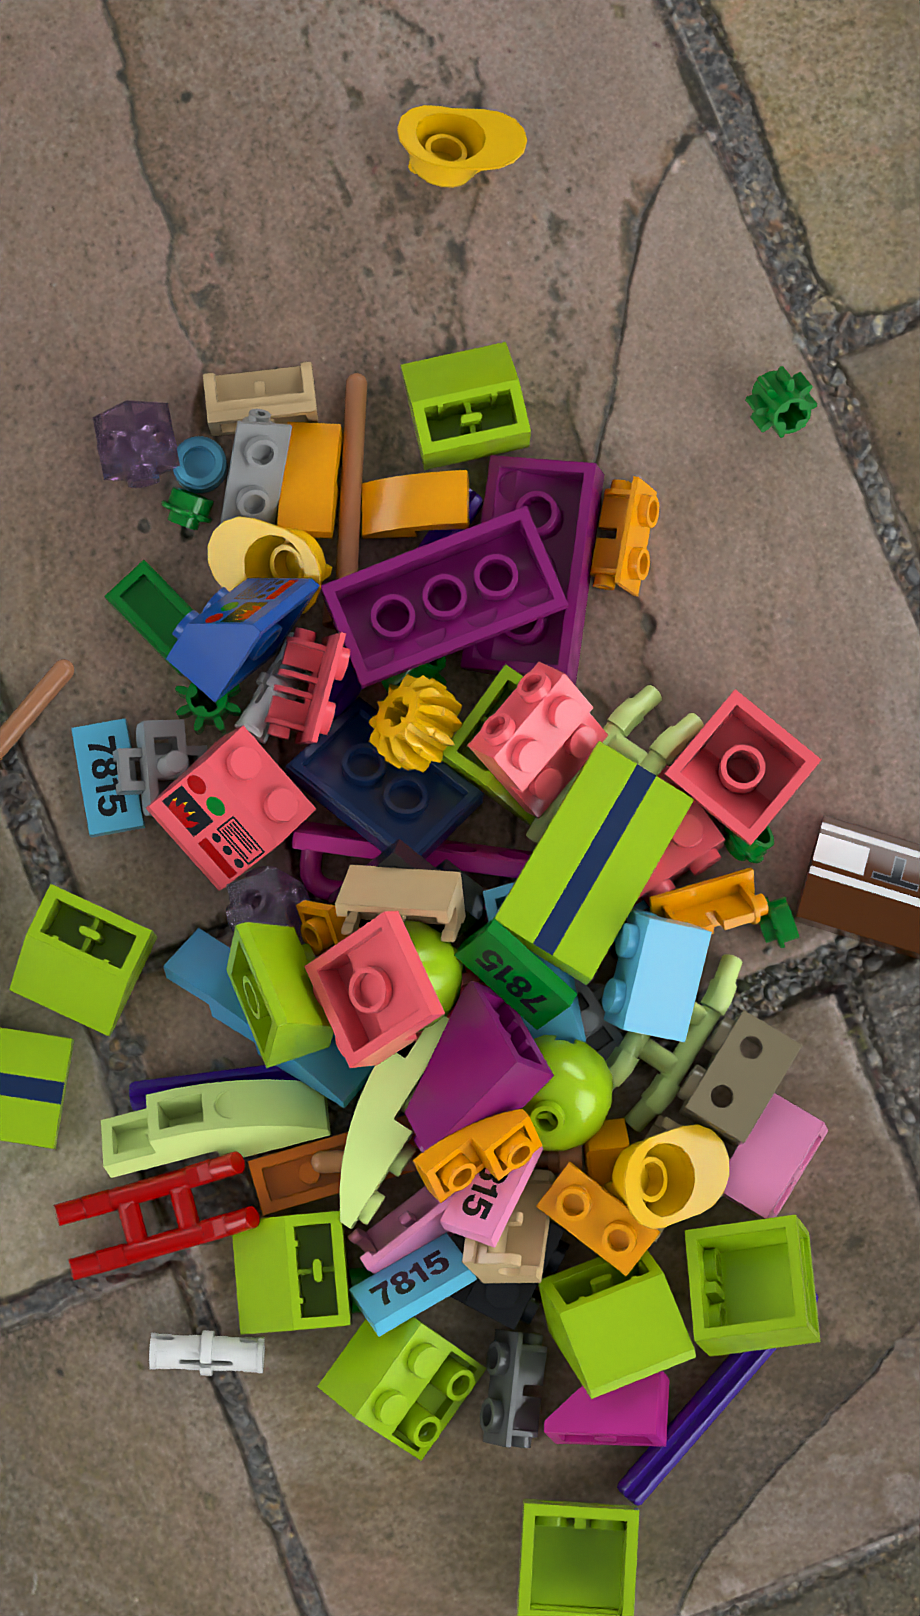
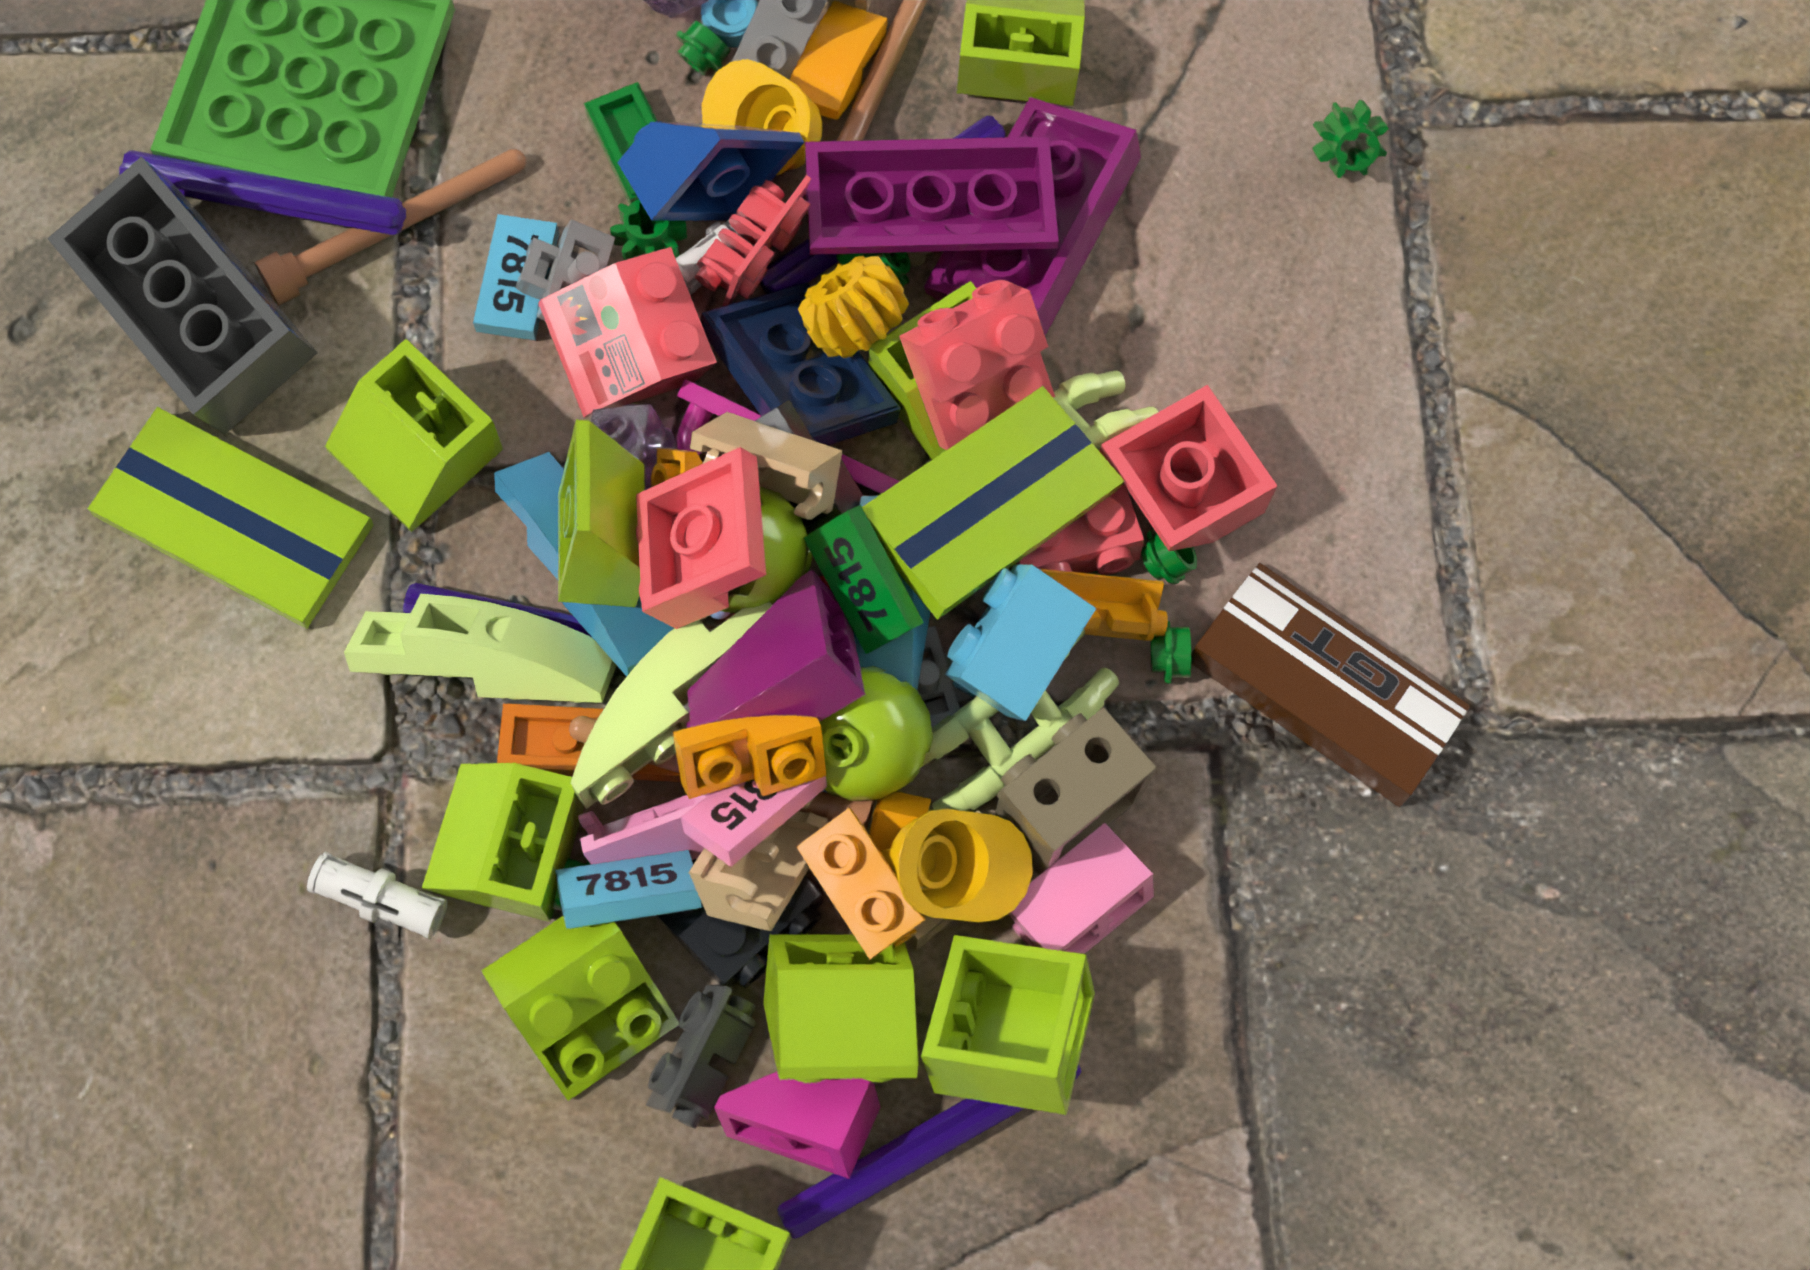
camera: 15 degrees right, 10 degrees down
(126, 1201) = (356, 704): red piece -> none
(415, 503) = (934, 110): light orange slope -> none
(631, 512) = (1155, 197): light orange hinge -> none

